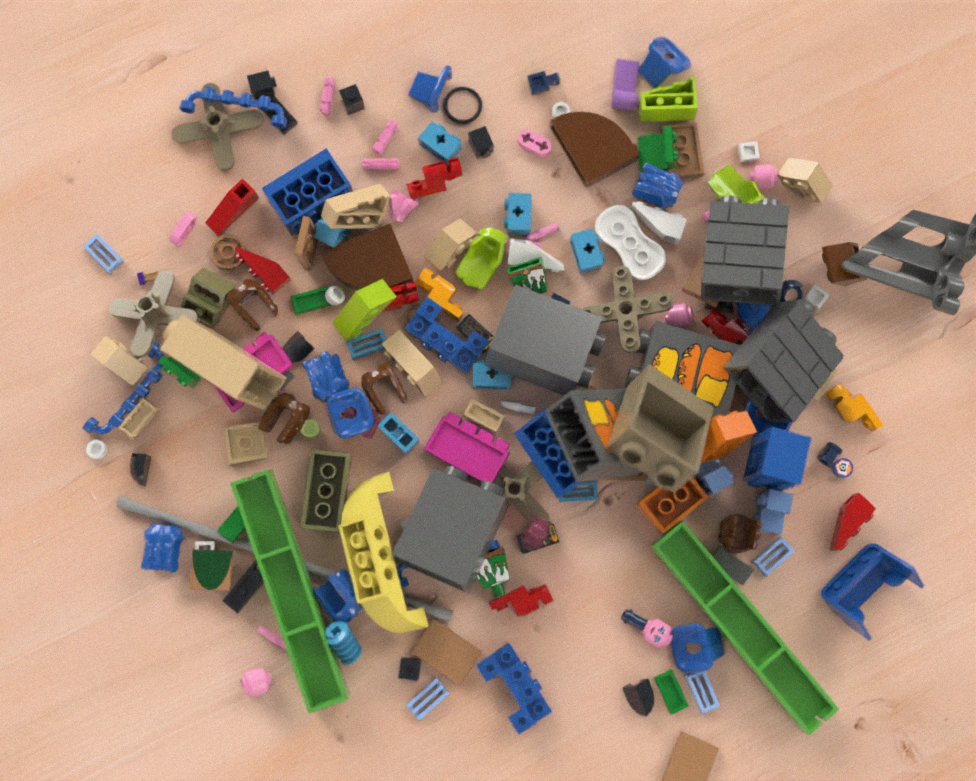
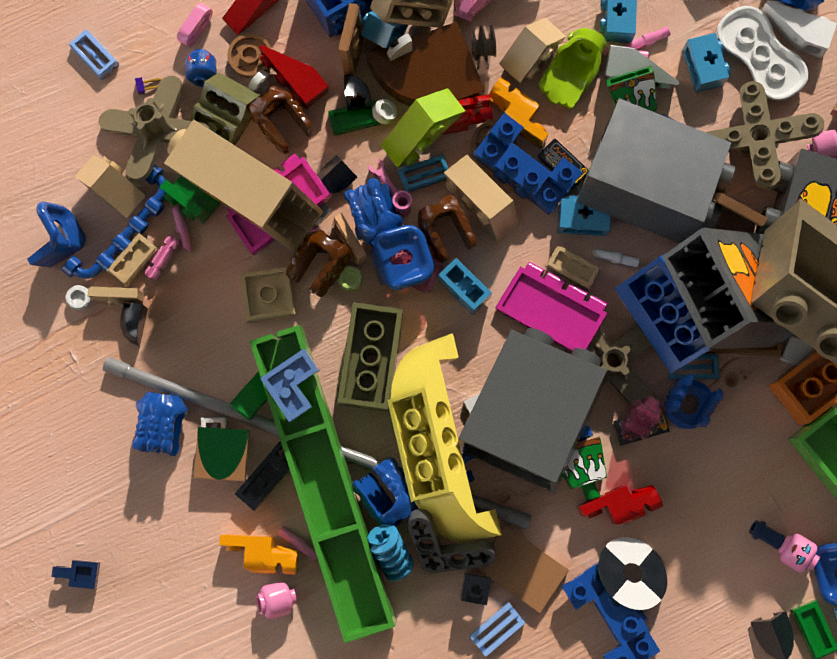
camera: 10 degrees right, 0 degrees up
(79, 410) = (58, 247): none -> blue piece
(104, 666) = (80, 574): none -> dark blue plate
(125, 448) = (115, 295): none -> tan plate
(161, 416) = (162, 257): none -> bright pink axle
(177, 392) = (182, 228): none -> bright pink piece
(188, 263) = (200, 66): none -> blue head
(236, 274) = (260, 82): none -> white tile
(243, 646) = (261, 555): none -> light orange plate
(258, 513) = (284, 381): none -> medium blue plate
(308, 398) = (348, 238): none -> light nougat tile
(312, 282) = (356, 93): none -> black brick
(346, 363) = (399, 197): none -> bright pink brick
(347, 246) = (400, 49): none -> white tile
(409, 641) = (443, 554): none -> dark grey beam
(411, 244) = (483, 46): none -> clear smoke piece
(519, 664) = (611, 570): none -> sticker
(583, 511) = (707, 403): none -> blue piece
(609, 368) = (739, 209): none -> medium nougat tile

